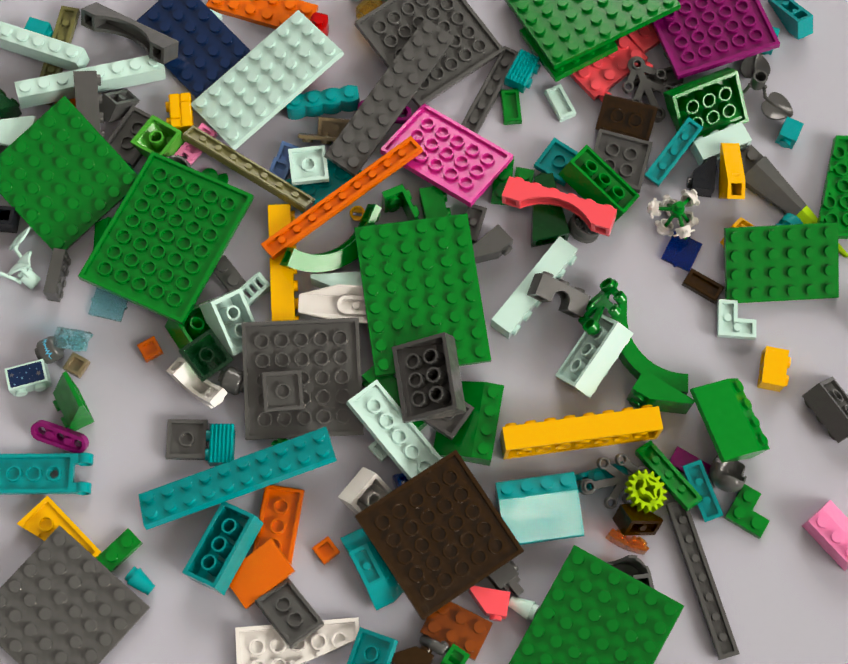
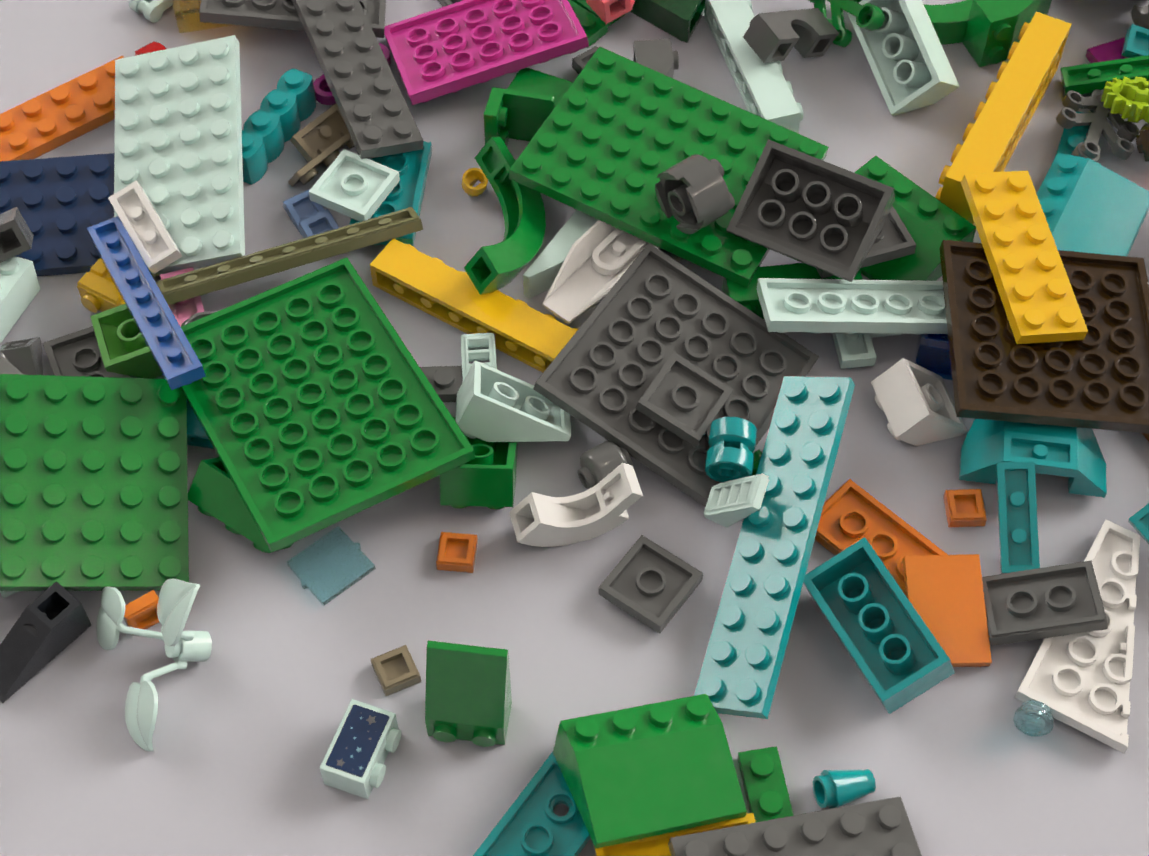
camera: 50 degrees left, 15 degrees down
(36, 249) = (142, 611): none -> orange tile
(48, 351) = (339, 684): dark grey head -> none
(52, 437) = (519, 760): magenta plate -> none
(56, 275) = (223, 602): dark grey piece -> none
(72, 339) = (355, 636): clear light blue hips -> none
(85, 498) = (649, 770): none -> green slope
(166, 132) = (146, 304): none -> plate
(206, 355) = (546, 461): clear green slope -> none
(214, 98) = (145, 227): none -> white plate
(221, 444) = (697, 540): teal brick -> none
(227, 642) = (1034, 718): none -> clear light blue plate
(245, 447) = (735, 499): none -> light aqua slope
(277, 425) = (730, 449): none -> teal wheel
(326, 576) = (1017, 516): none -> teal plate
(341, 197) = (446, 173): orange plate -> none
(391, 319) = (694, 193): none -> dark grey brick
(473, 492) = (1023, 257): none -> yellow plate

